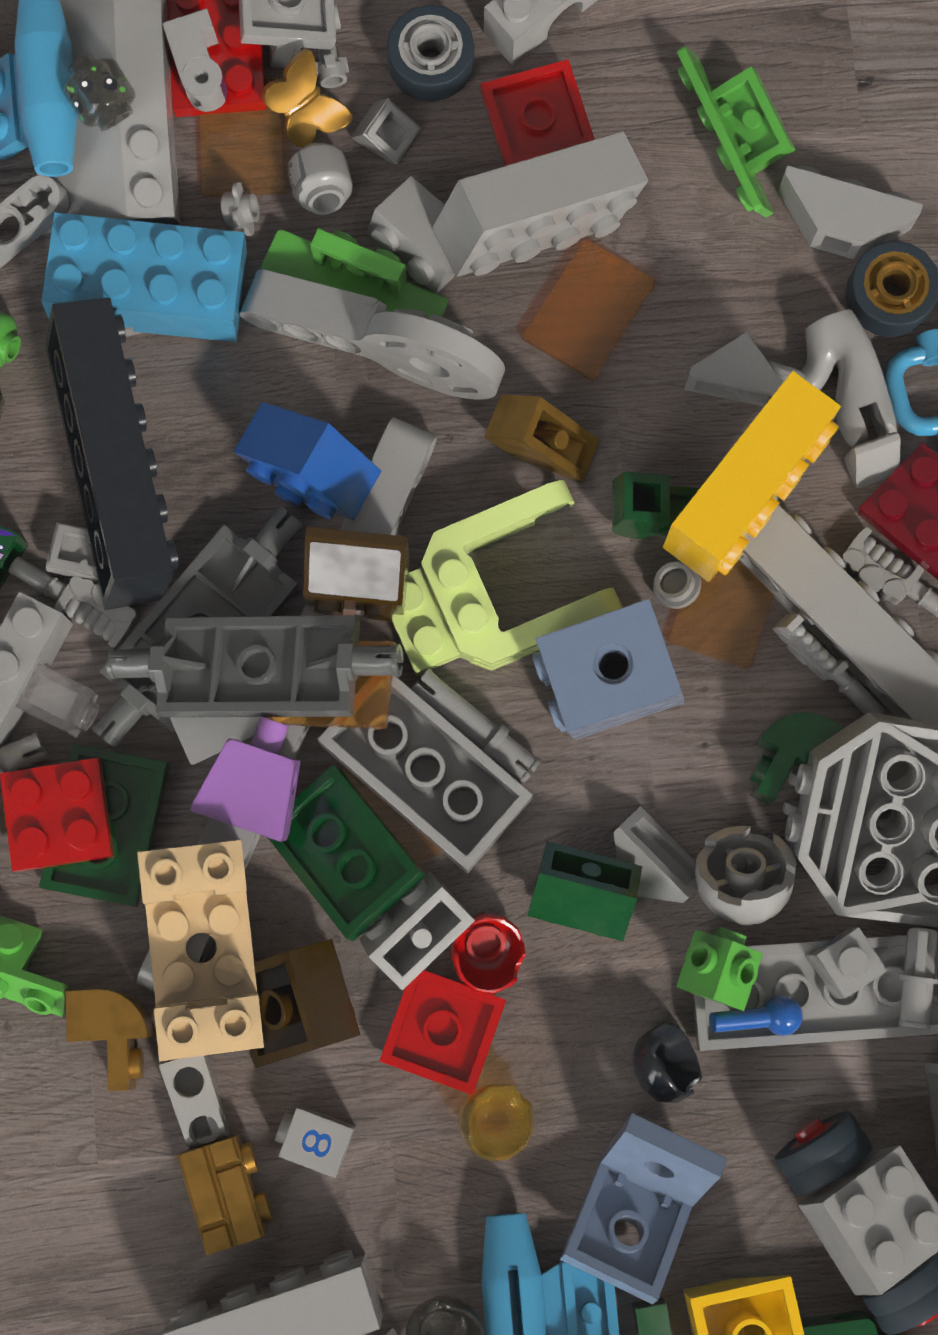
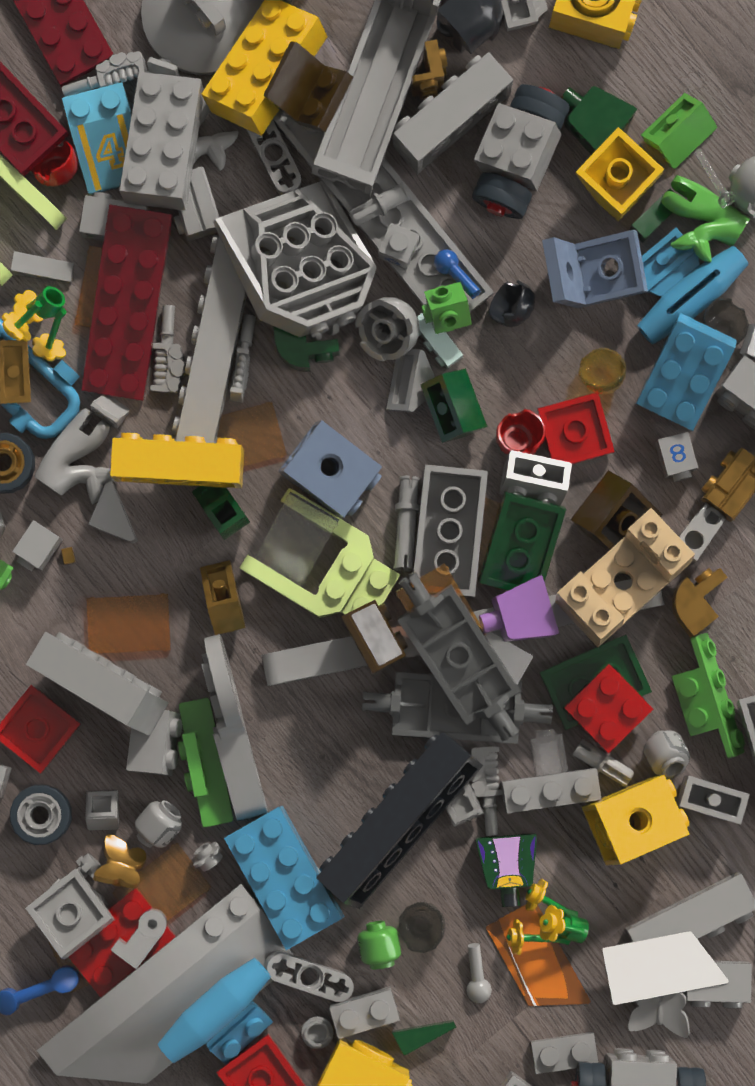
camera: 125 degrees left, 5 degrees up
(99, 92) = (204, 969): clear smoke head -> none
(307, 462) = (331, 708): blue brick -> none
(415, 1234) = (686, 371): none -> dark azure brick
(551, 574) = (296, 539): none -> clear piece
(676, 585) = (255, 469): light grey plate -> none
(676, 934) = (440, 343): none -> light aqua piece
(723, 294) = (68, 555): none -> pearl gold piece
(761, 260) = (36, 547): none -> light grey brick

